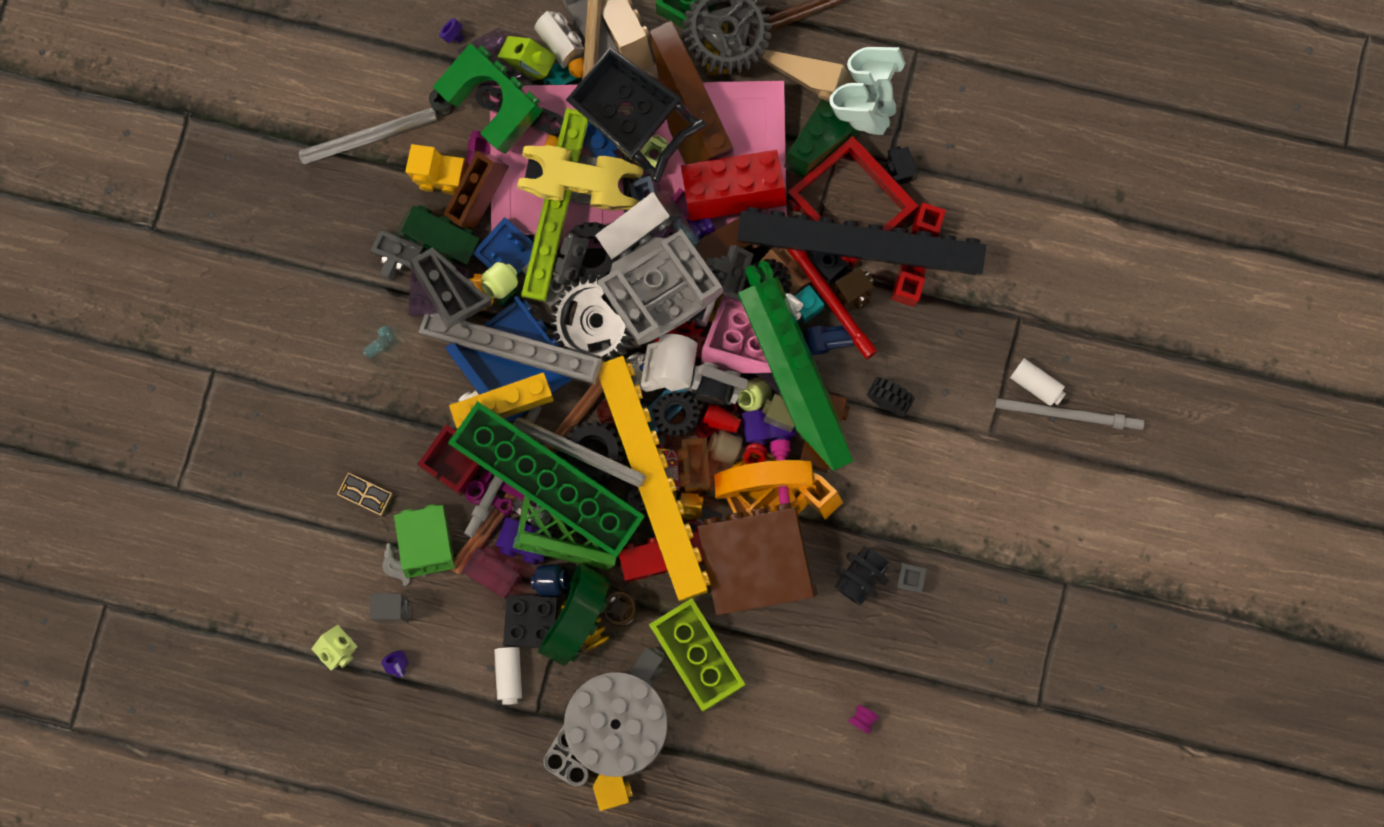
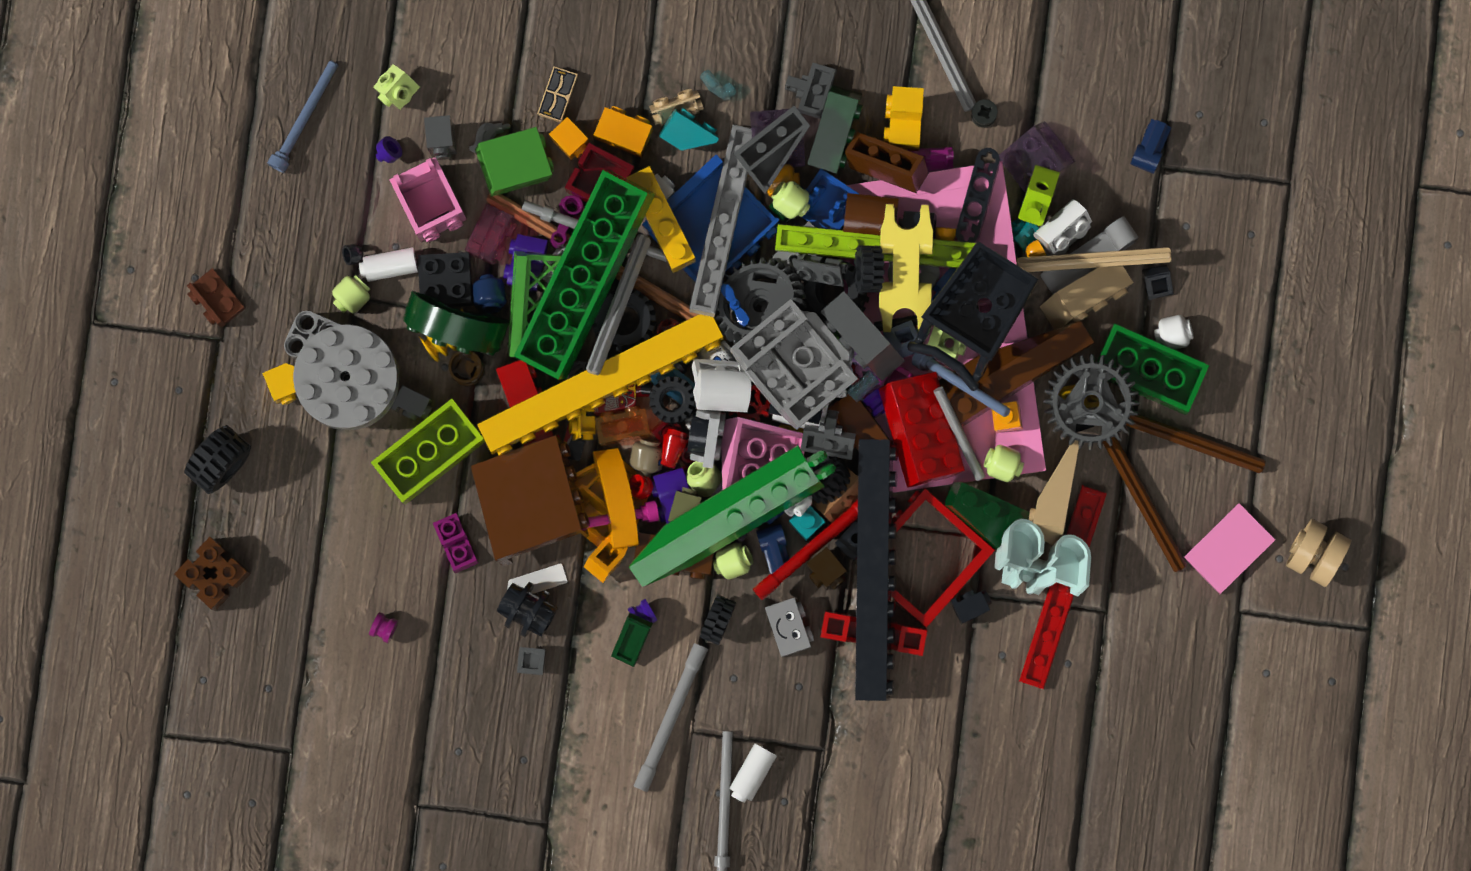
camera: 85 degrees right, 5 degrees up
(388, 771) = (280, 159): none -> sand blue piece
(390, 374) = (665, 106): none -> tan hinge
(410, 434) = (623, 131): none -> light orange brick
(410, 486) = (569, 139): none -> light orange brick
(420, 375) = (685, 132): none -> teal slope
(445, 629) = (425, 196): none -> bright pink container
(452, 32) = (1063, 113): dark purple tile -> none
(492, 710) = (352, 254): none -> black hinge
(517, 108) = (977, 193): green arch -> none
(522, 212) = (866, 213): none -> reddish brown brick
(532, 715) = (351, 294): none -> yellowish green head
(576, 210) = (869, 269): none -> black tyre
(594, 340) = (735, 305): none -> blue piece
(670, 174) = (927, 363): none -> sand blue piece
(731, 106) = (1010, 422): none -> light orange brick
(741, 150) = (959, 433): none -> light grey bar
(773, 115) = (1003, 463): none -> yellowish green head
(788, 641) = (455, 543): none -> magenta slope
(831, 560) = (542, 579): none -> white sticker
(836, 377) = (733, 560): none -> yellowish green head
(877, 468) = (643, 611): none -> dark purple wheel
(900, 480) = (631, 639): none -> dark green tile
(903, 333) = (788, 627): none -> light grey brick
(906, 90) = (1058, 596): none -> red tile
(1023, 479) = (692, 666): none -> light grey piece

